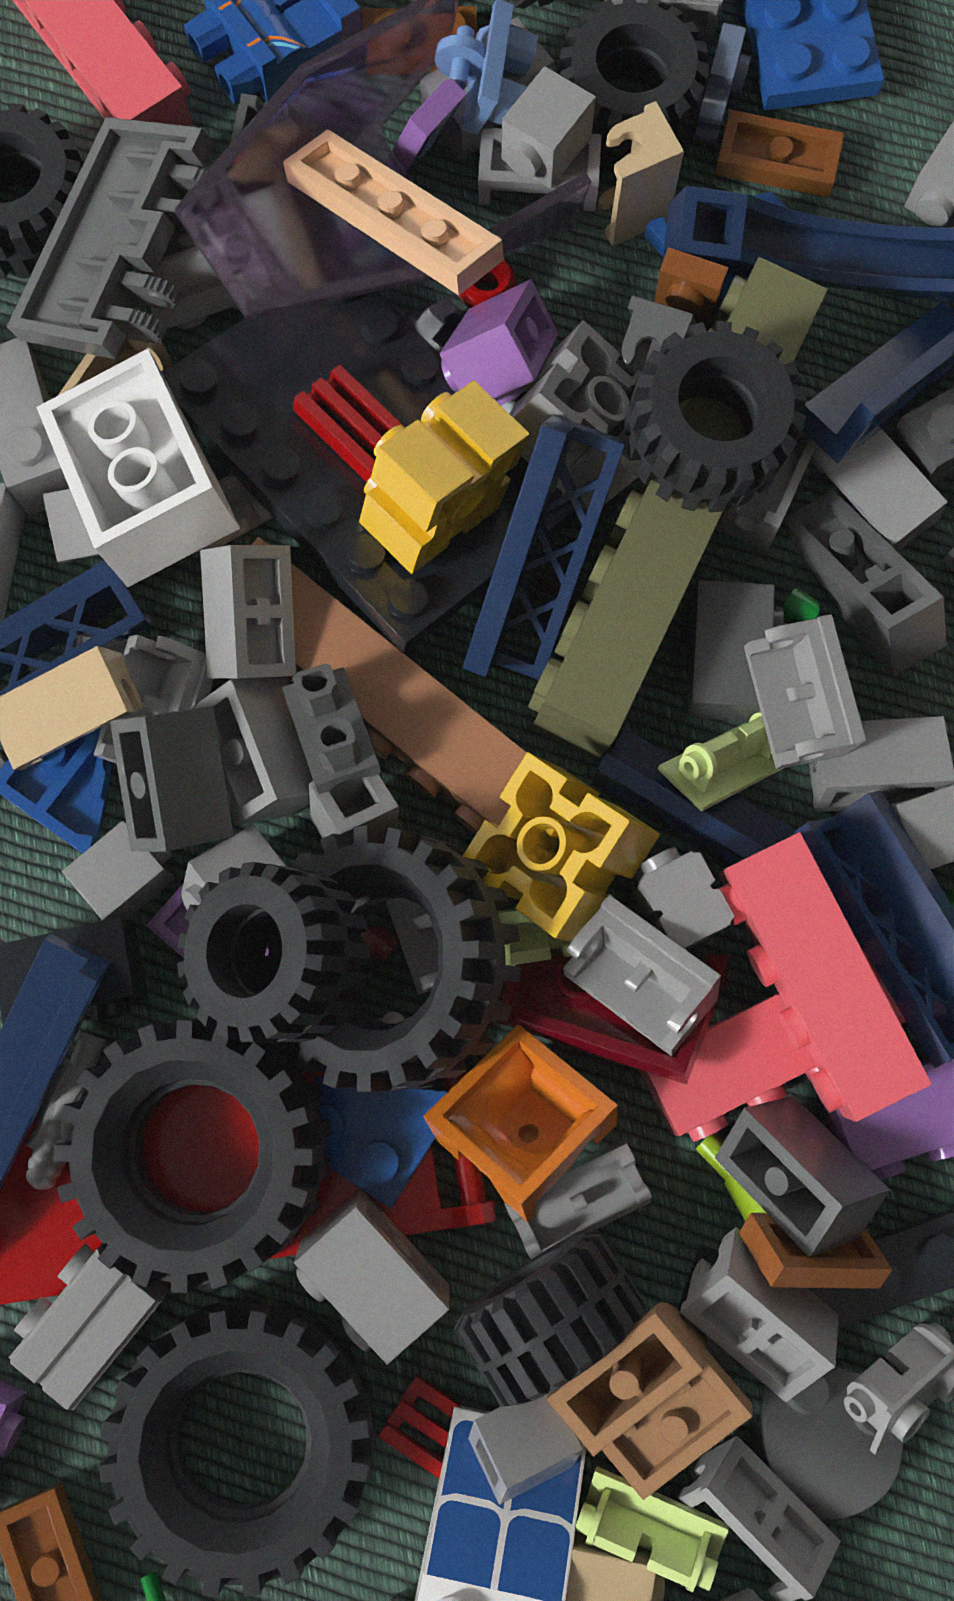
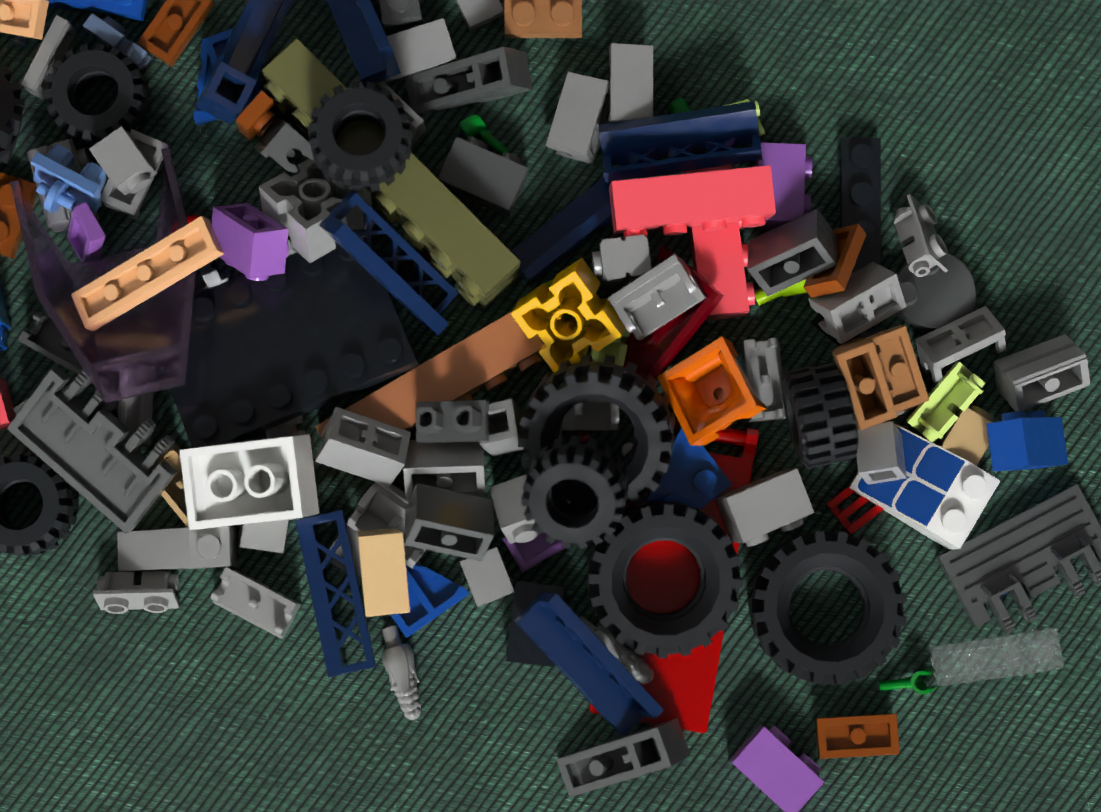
camera: 70 degrees left, 5 degrees up
(85, 1328) = (735, 672): light grey brick -> none
(356, 408) = (265, 330): red tile -> none
(441, 474) = (328, 304): yellow brick -> none
(644, 177) = (169, 113): tan hinge -> none
(723, 764) = (549, 202): yellowish green hinge -> none
(804, 692) = (529, 146): light grey hinge -> none

